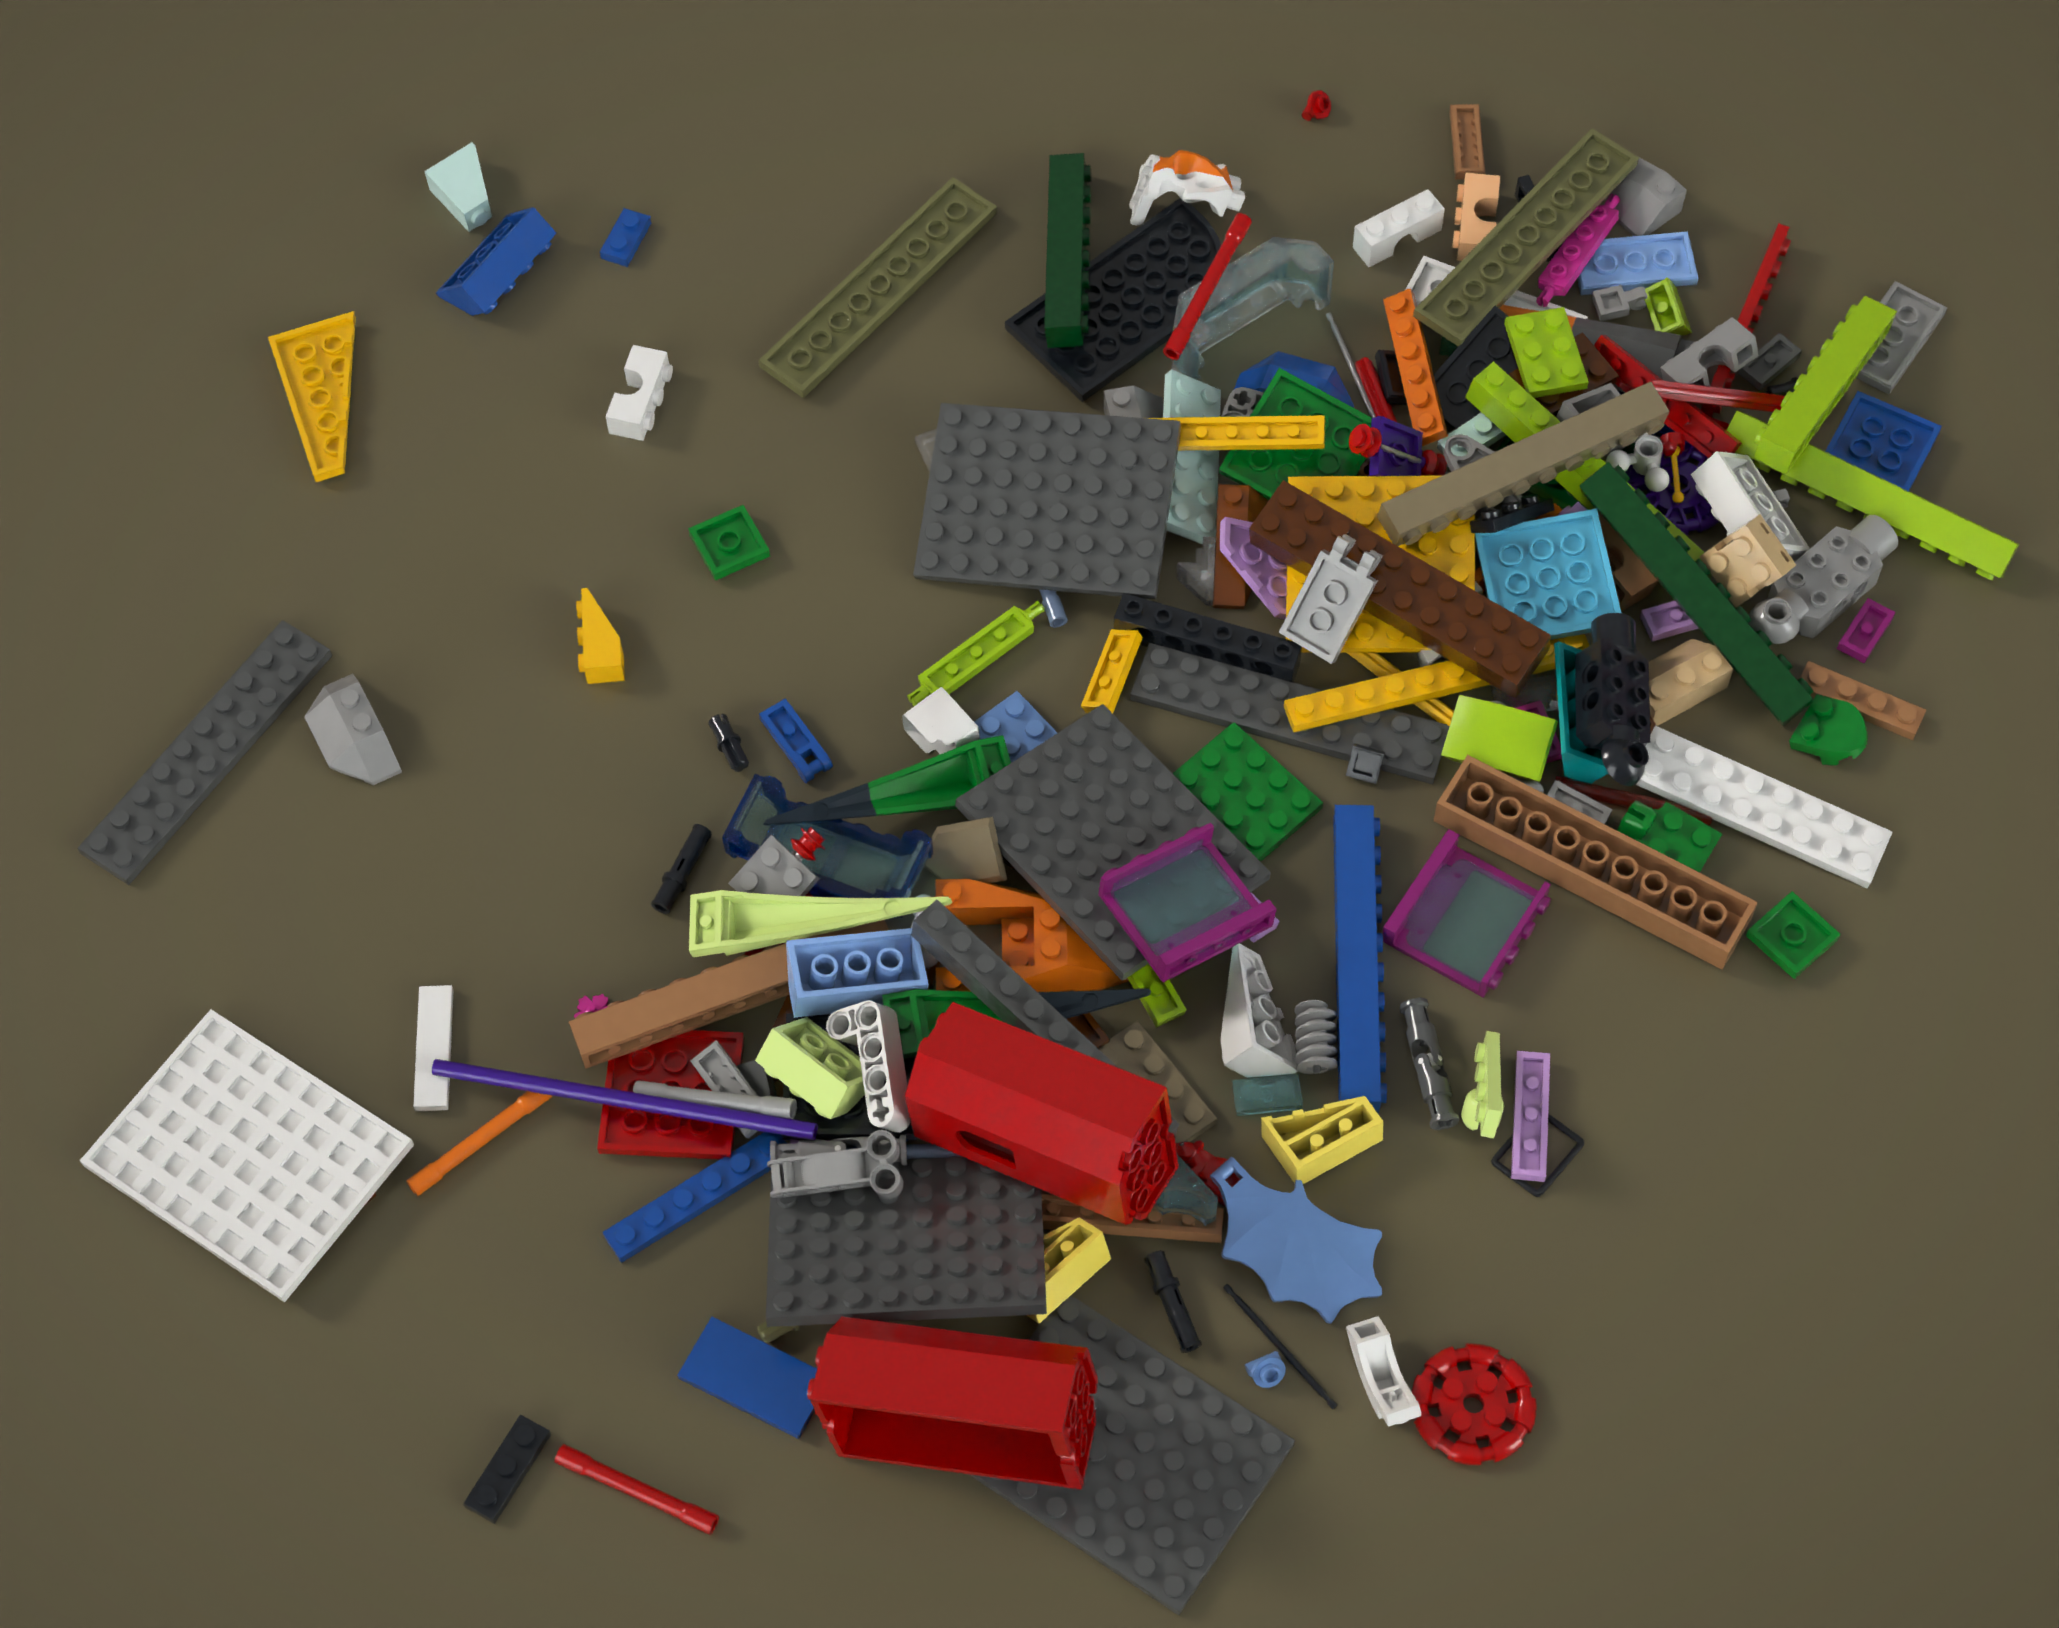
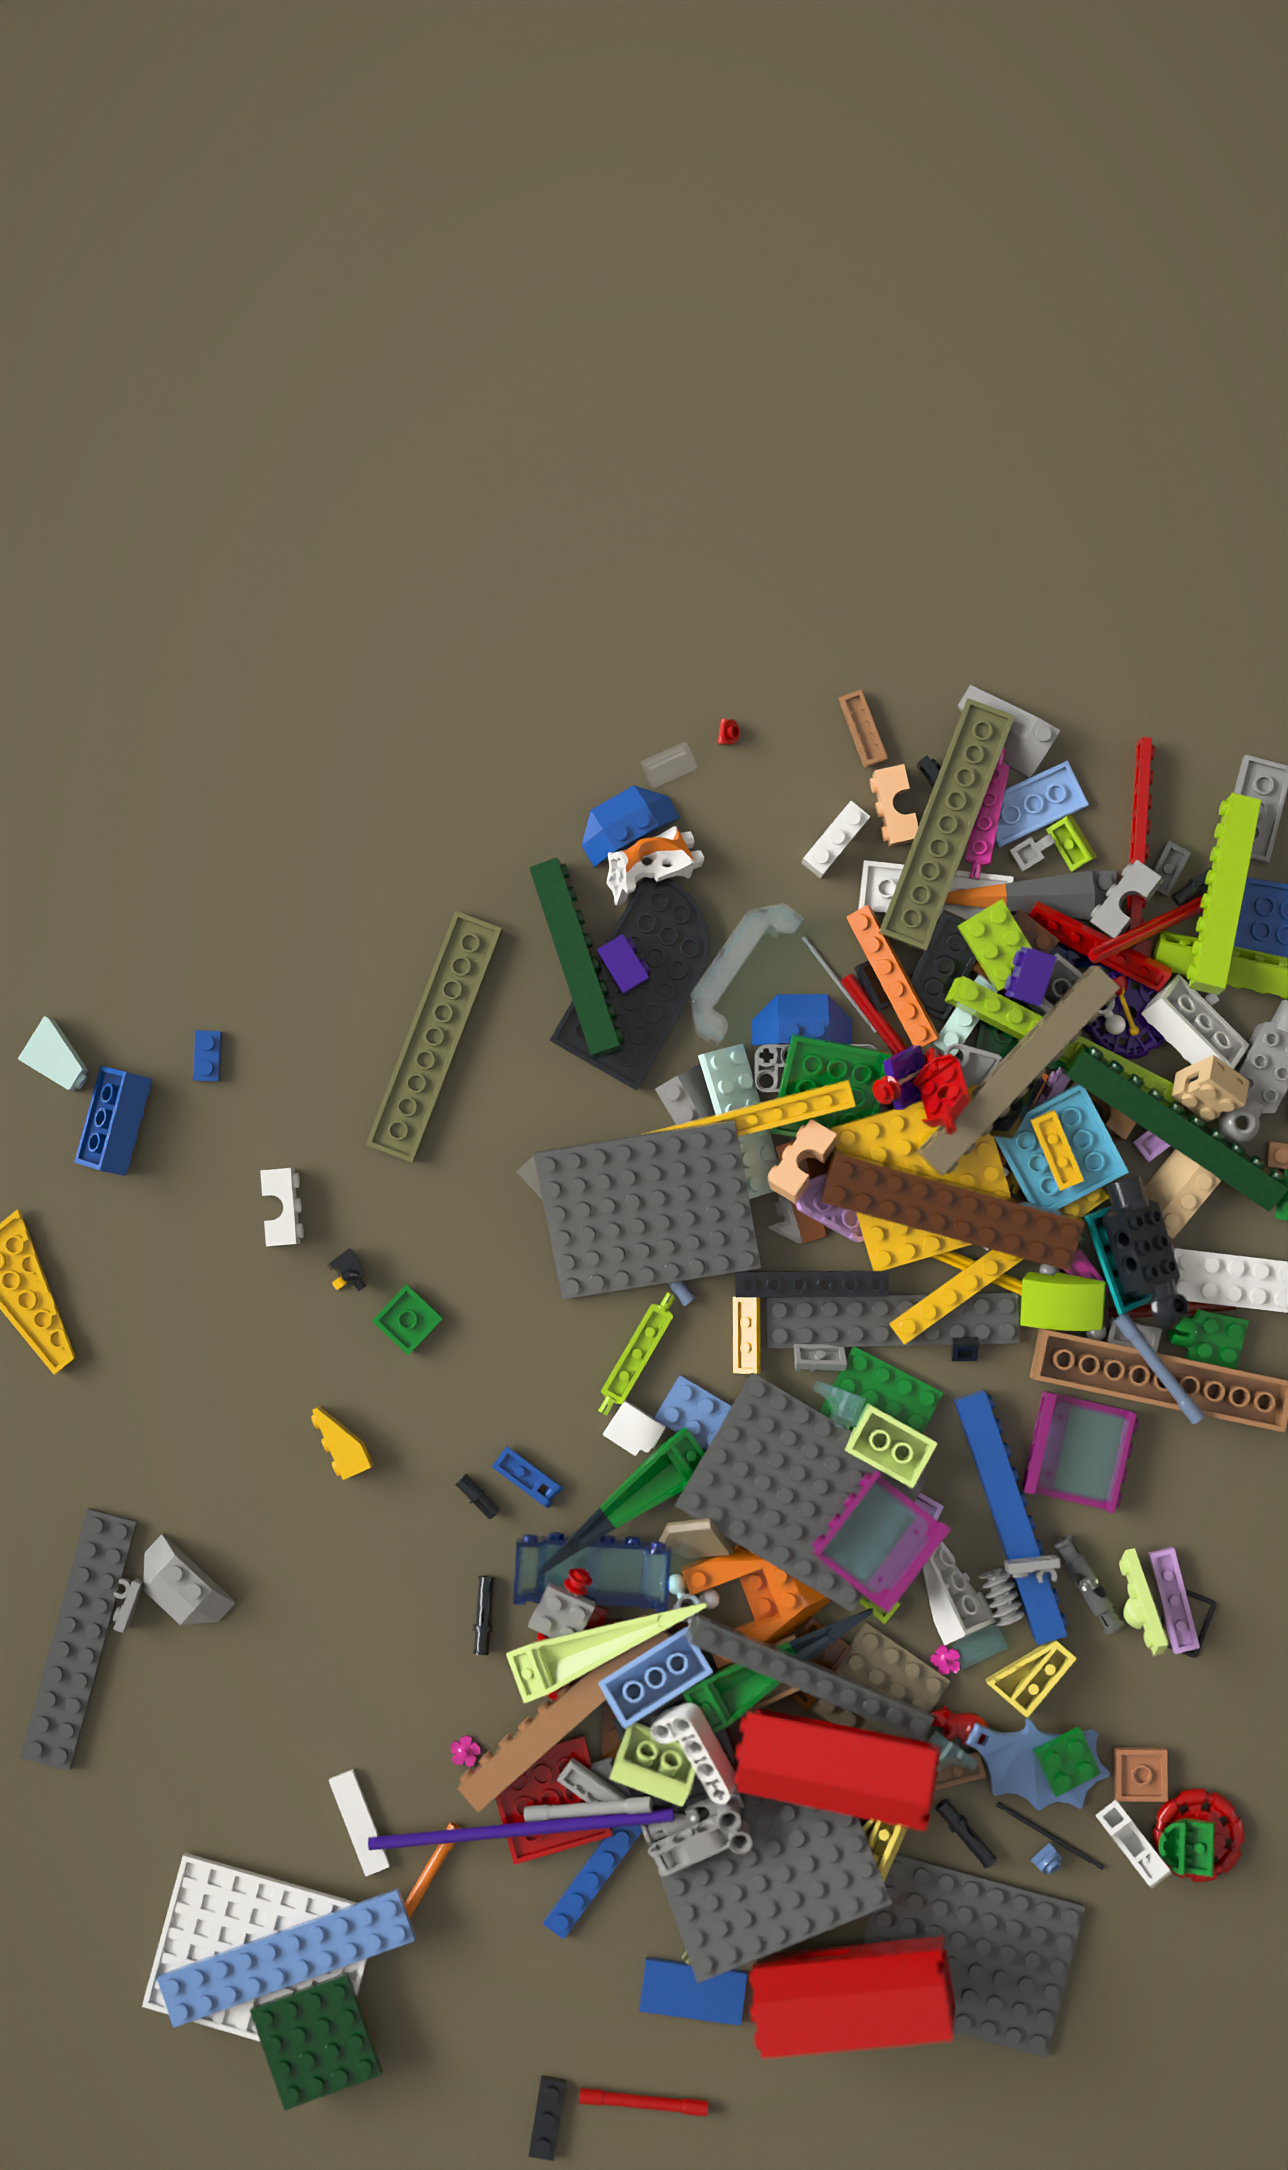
camera: 20 degrees left, 25 degrees up
(268, 1258) = (316, 2041): none -> dark green plate
(277, 1153) = (286, 1957): none -> medium blue plate
(281, 727) = (124, 1614): none -> light grey plate
(684, 469) = (348, 1270): none -> black piece
(1116, 267) = (623, 963): none -> dark purple brick
(1165, 142) = (625, 821): none -> blue wedge
(1181, 334) = (719, 929): red piece -> none
(1198, 722) = (819, 1357): none -> light grey plate
(1199, 764) = (844, 1405): none -> clear light blue arch
(1221, 1096) = (946, 1660): none -> dark pink plant
(1223, 498) = (811, 1142): none -> light nougat arch
(1240, 119) = (669, 764): none -> clear slope
(1240, 814) = (890, 1445): none -> yellowish green slope
(1330, 1247) = (1066, 1761): none -> green plate
(1331, 600) = (905, 1242): light grey tile -> none
(1355, 996) = (1042, 1564): none -> light grey plate
(1422, 1304) = (1141, 1774): none -> nougat plate
(1429, 460) = (940, 1078): none -> red plate
(1455, 1396) = (1189, 1846): none -> green slope
(1544, 566) = (1056, 1150): none -> yellow plate
(1569, 378) = (1030, 975): none -> dark purple brick
(1613, 876) = (1184, 1401): none -> sand blue piece

